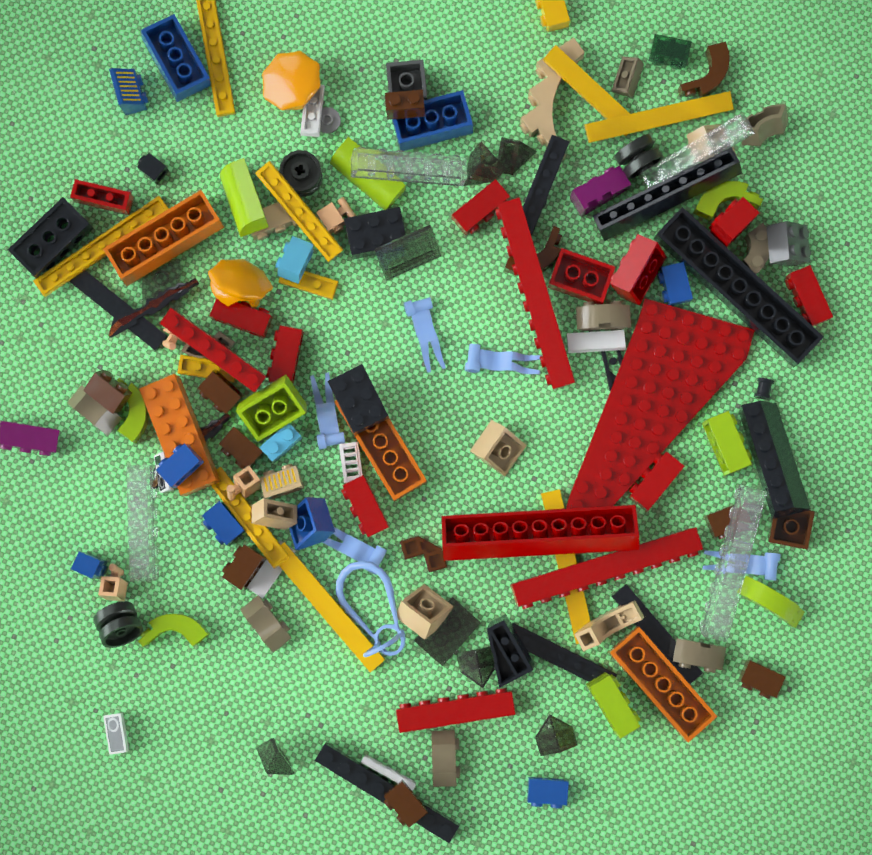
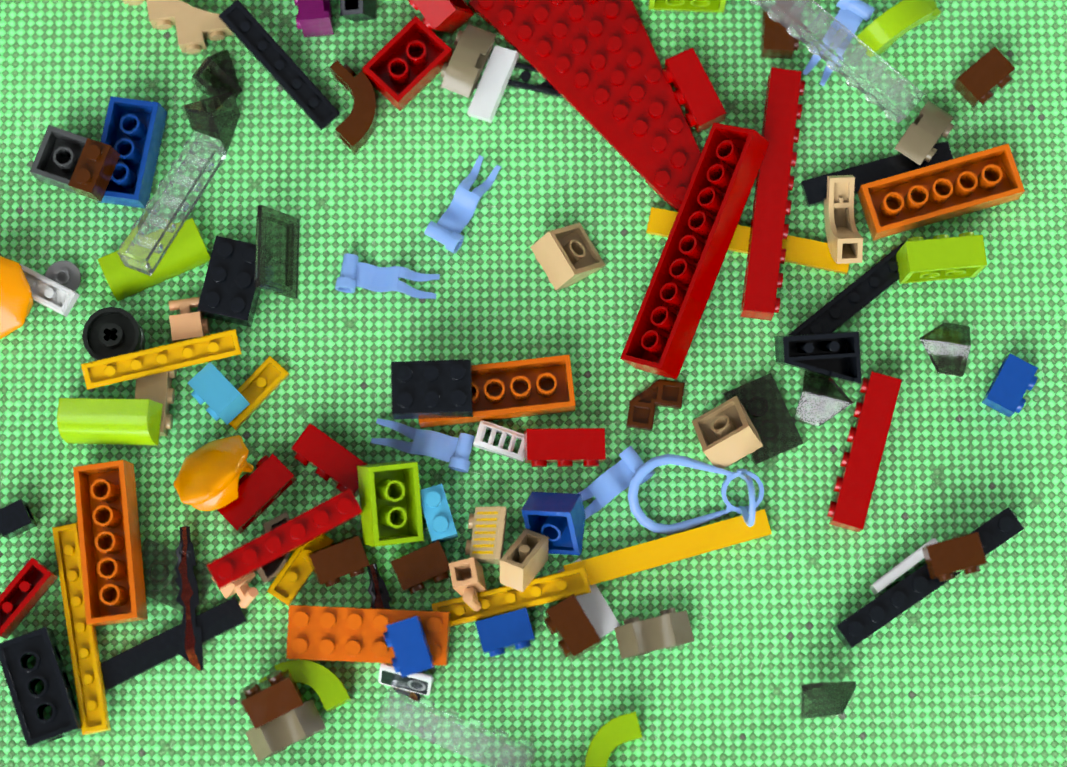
camera: 65 degrees left, 5 degrees down
(444, 758) = (929, 494): dark tan brick -> none
(480, 208) = (265, 143): red brick -> none
(535, 293) = (402, 123): red brick -> none

